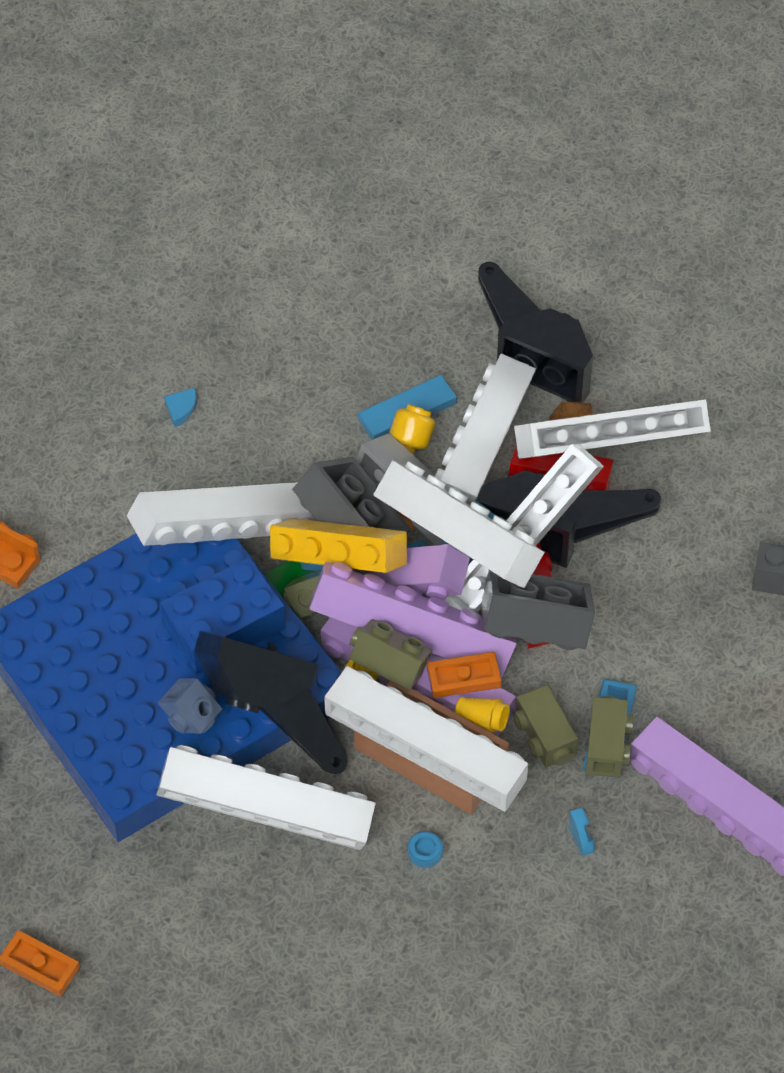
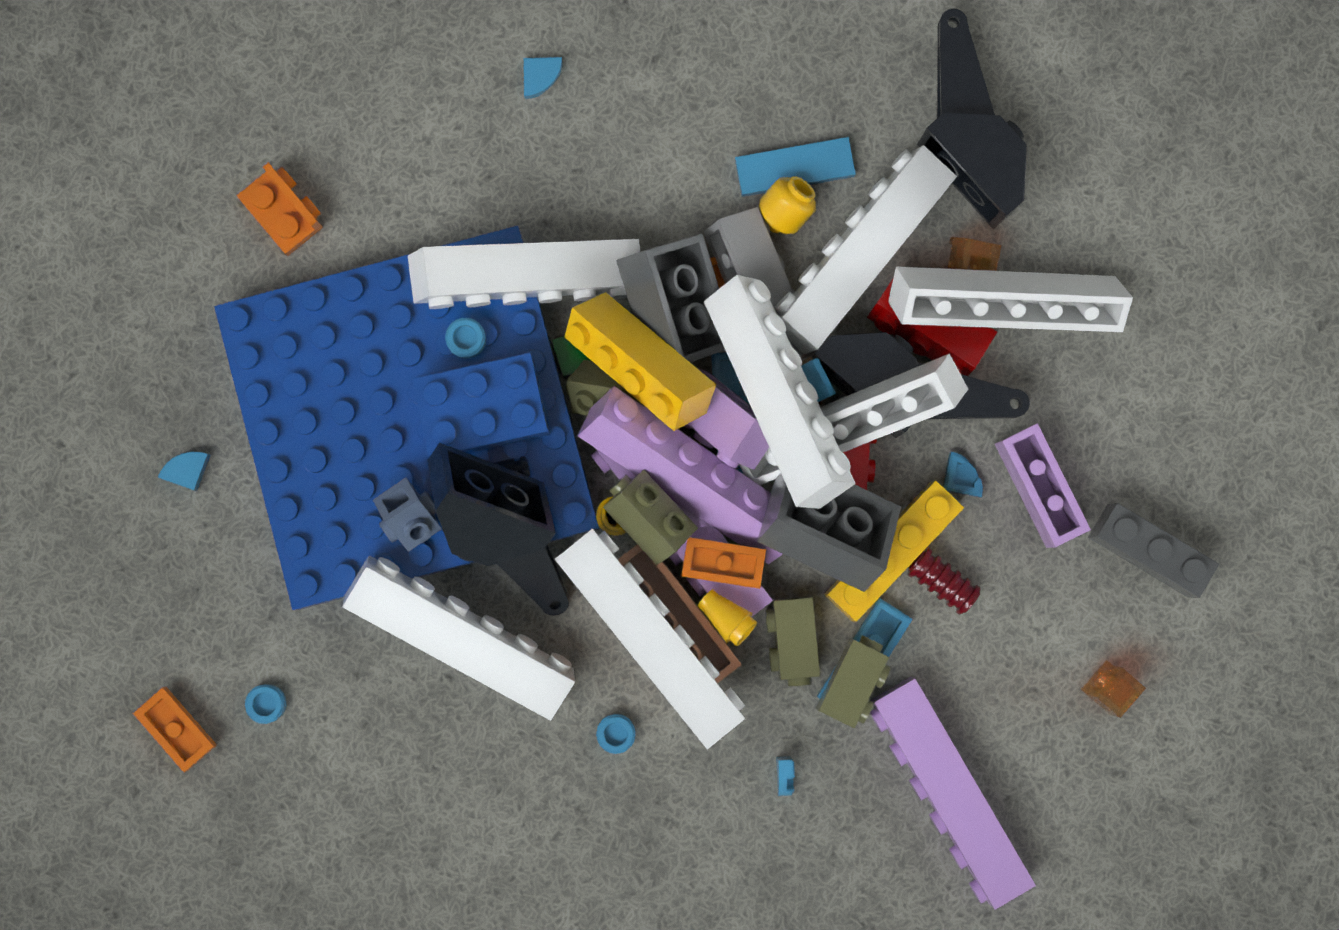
camera: 15 degrees right, 30 degrees up
(112, 922) = (265, 703): none -> dark azure tile
(189, 574) = (465, 338): none -> dark azure tile
(613, 611) = (915, 530): none -> yellow brick
(631, 576) = (962, 476): none -> dark azure tile
(649, 649) = (944, 581): none -> dark red piece
(697, 554) = (1042, 486): none -> lavender brick

